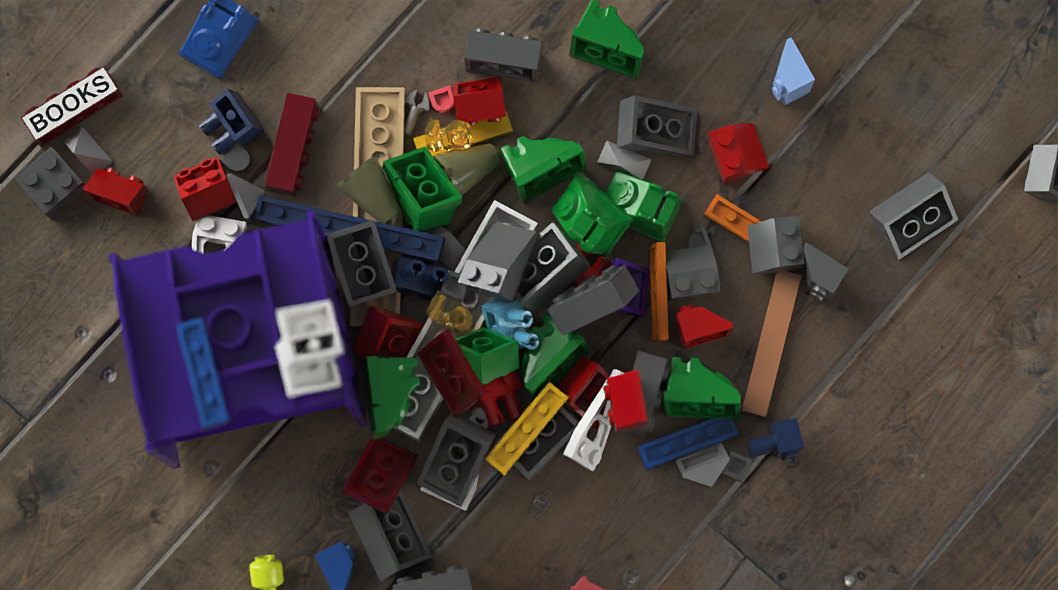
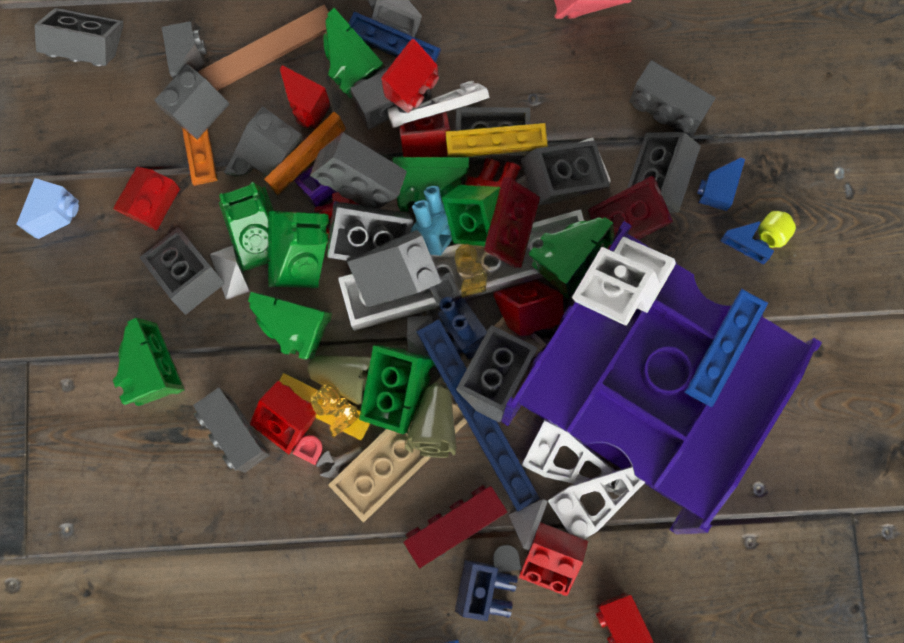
camera: 135 degrees left, 0 degrees up
(284, 540) = (742, 241): none -> blue slope

